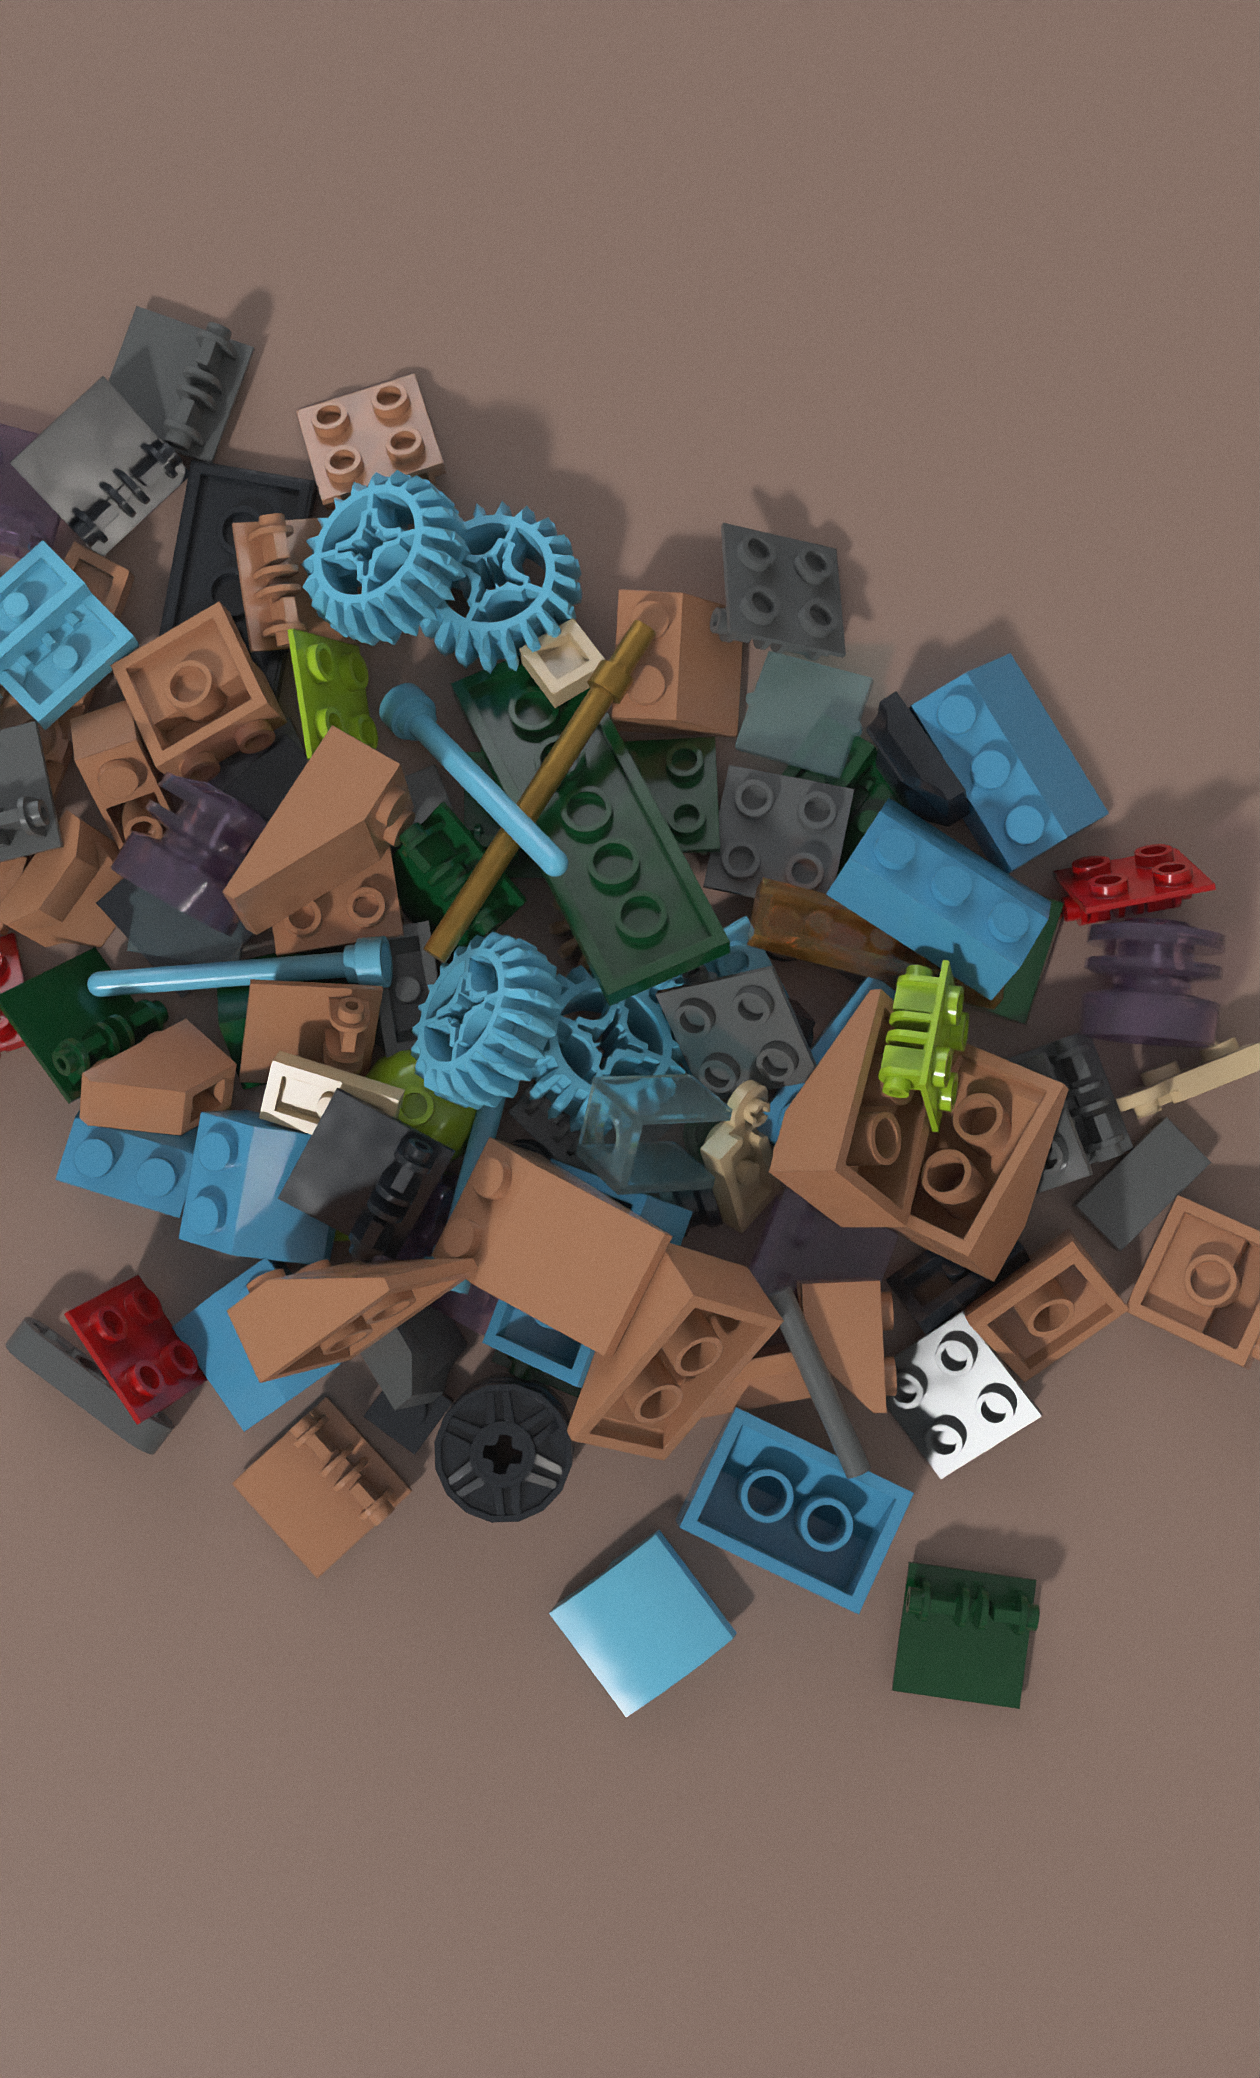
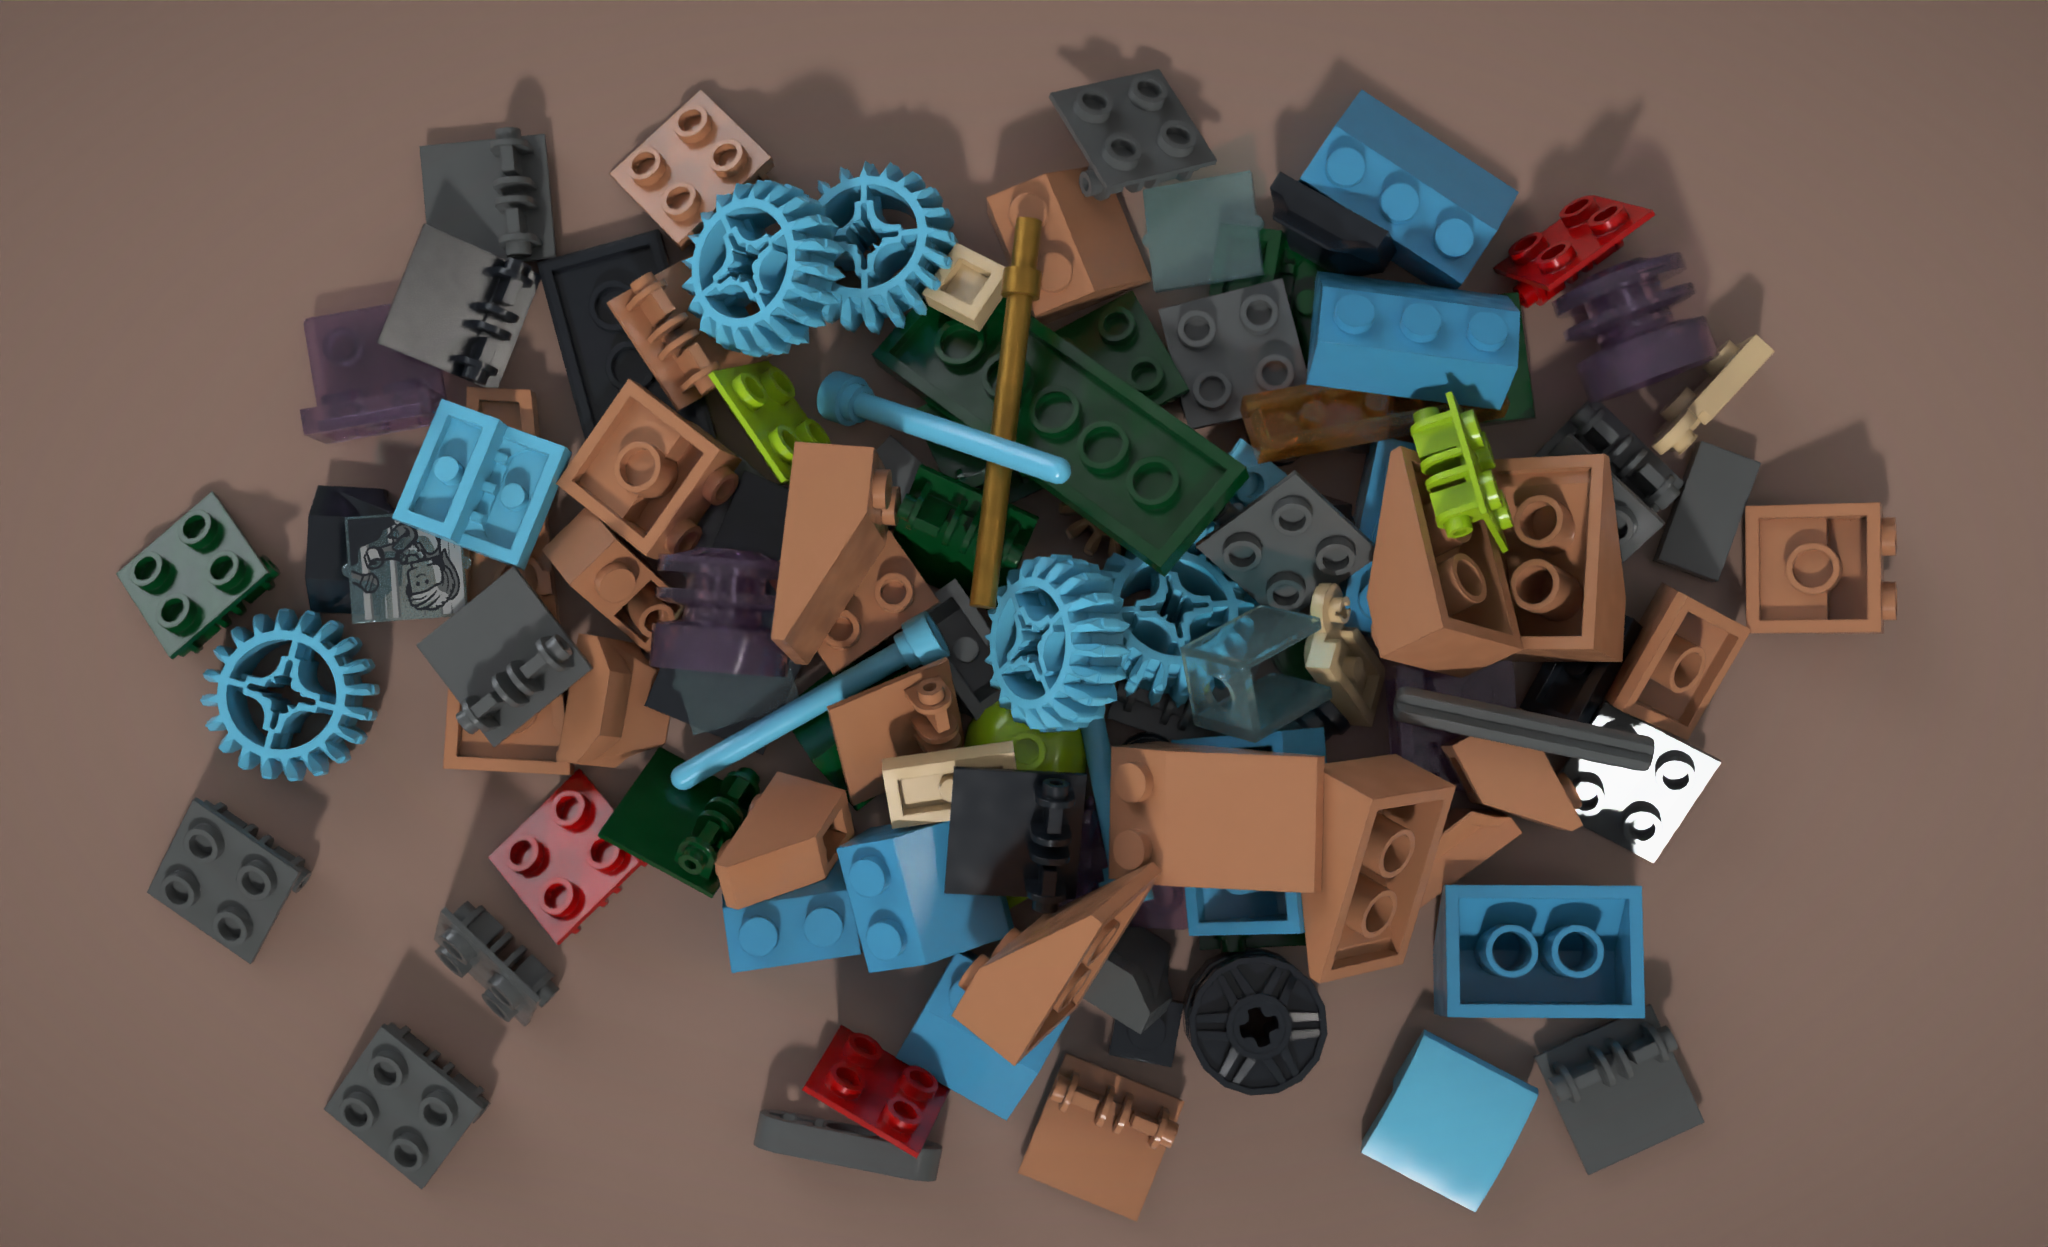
camera: 25 degrees left, 0 degrees up
(810, 1669) = (1619, 1089): none -> dark grey hinge
(819, 1383) = (1512, 828): dark grey bar -> none
(872, 1299) = (1523, 728): none -> dark grey axle
(964, 1634) = (1742, 992): dark green hinge -> none

